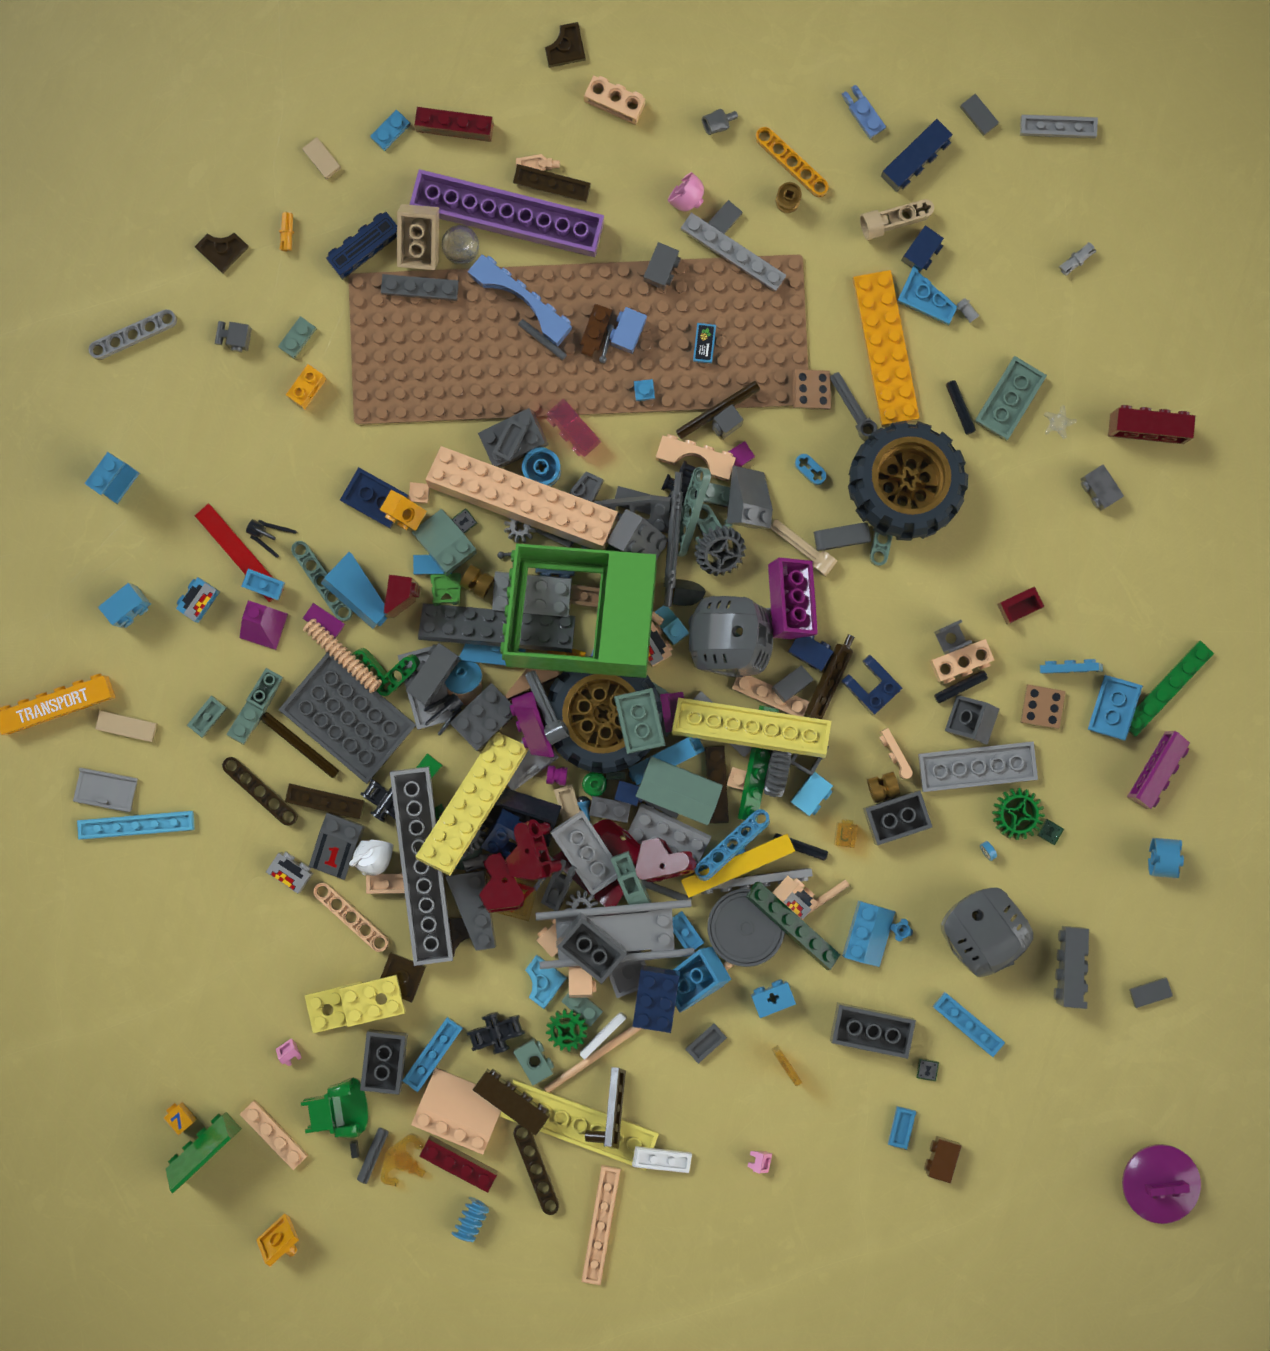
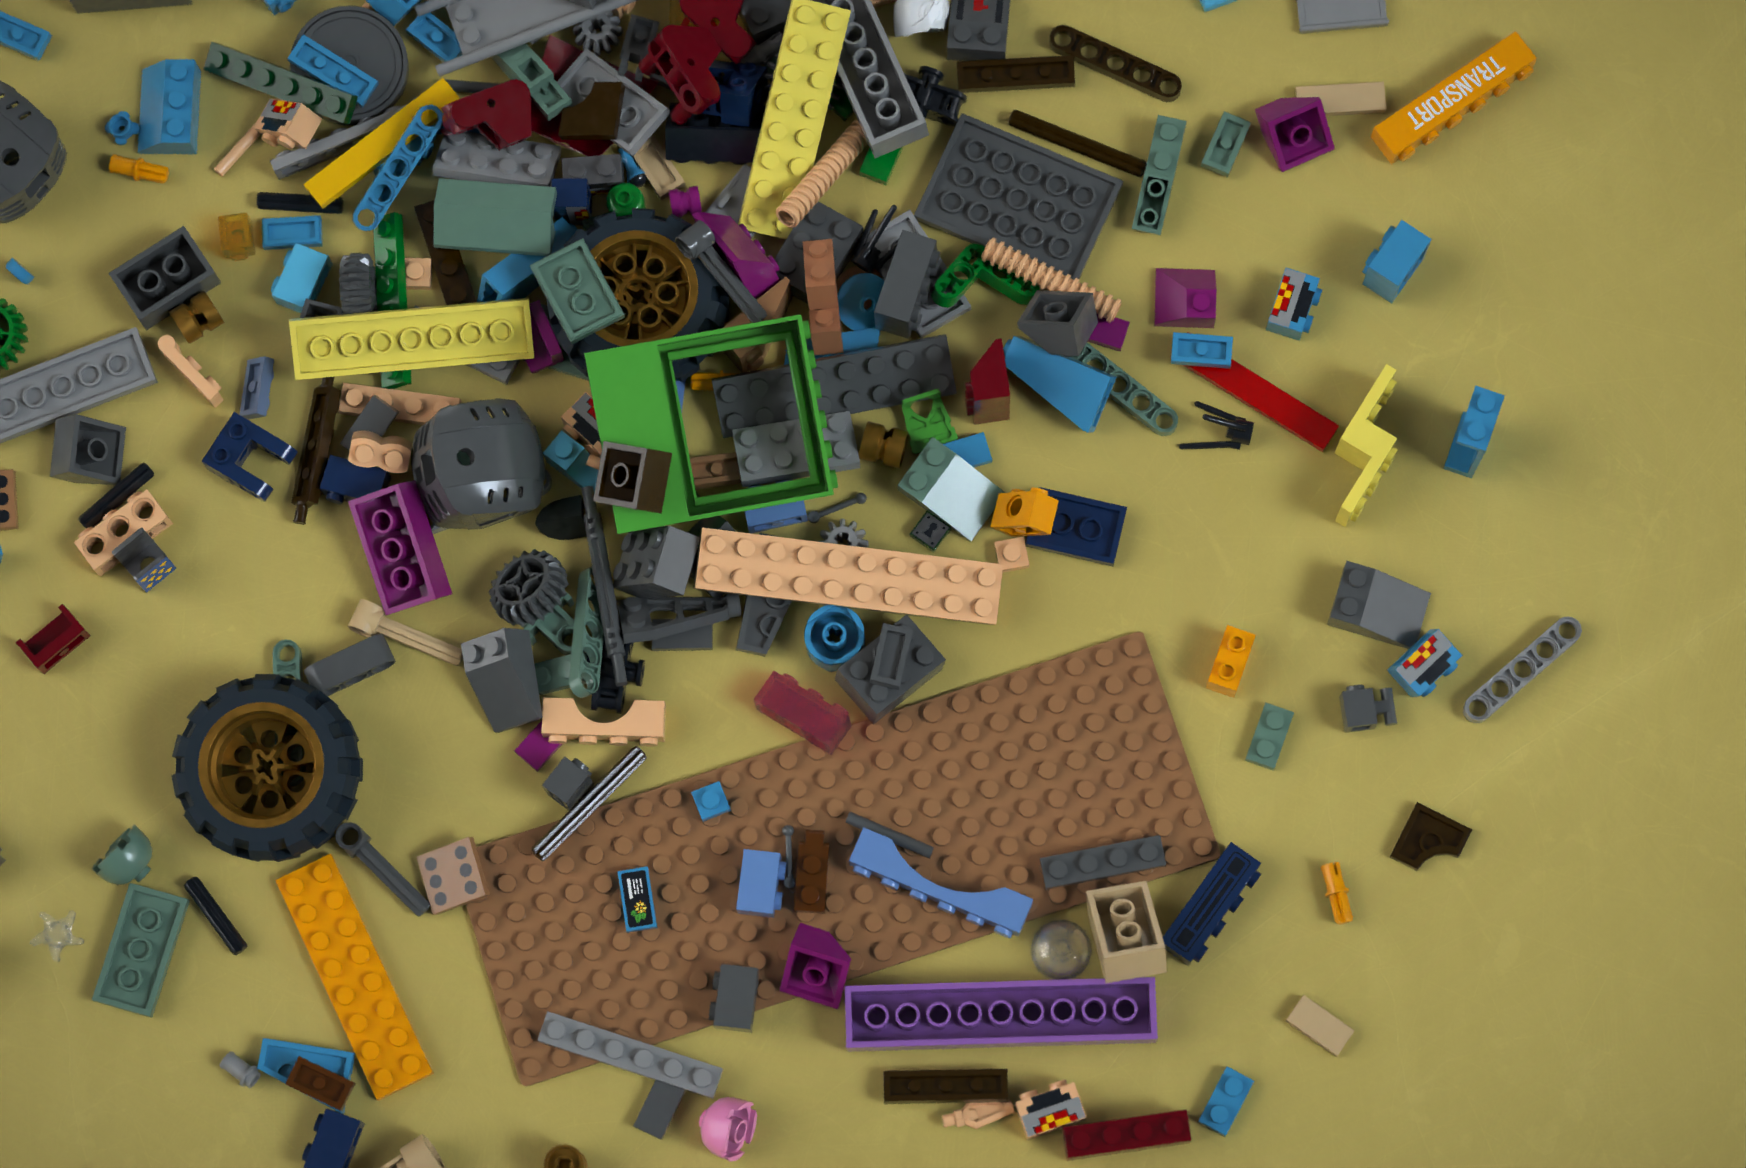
camera: 170 degrees right, 10 degrees down
(161, 712) = (1295, 130): none -> magenta slope
(182, 495) = (1367, 446): none -> light yellow bracket
(189, 352) = (1425, 663): none -> brick
(207, 396) = (1378, 606): none -> dark grey slope
(345, 624) = (1060, 321): none -> dark grey slope
(465, 762) = (822, 176): none -> light nougat piece
(487, 683) = (822, 297): none -> nougat arch
(494, 151) = (1050, 1109): none -> brick
(598, 843) = (595, 116): none -> dark brown tile
(608, 271) = (815, 967): none -> magenta slope
(637, 581) = (632, 477): none -> dark brown slope
(757, 922) = (332, 69): none -> dark azure plate
(788, 663) = (372, 450): none -> light nougat brick
(807, 472) = (421, 761): dark azure beam -> none
(810, 828) = (287, 231): none -> dark azure tile
(856, 730) = (257, 387): none -> sand blue plate
(897, 898) = (138, 169): none -> light orange axle
(921, 284) = (320, 1083): none -> reddish brown plate
(1007, 454) = (126, 858): none -> sand green cylinder

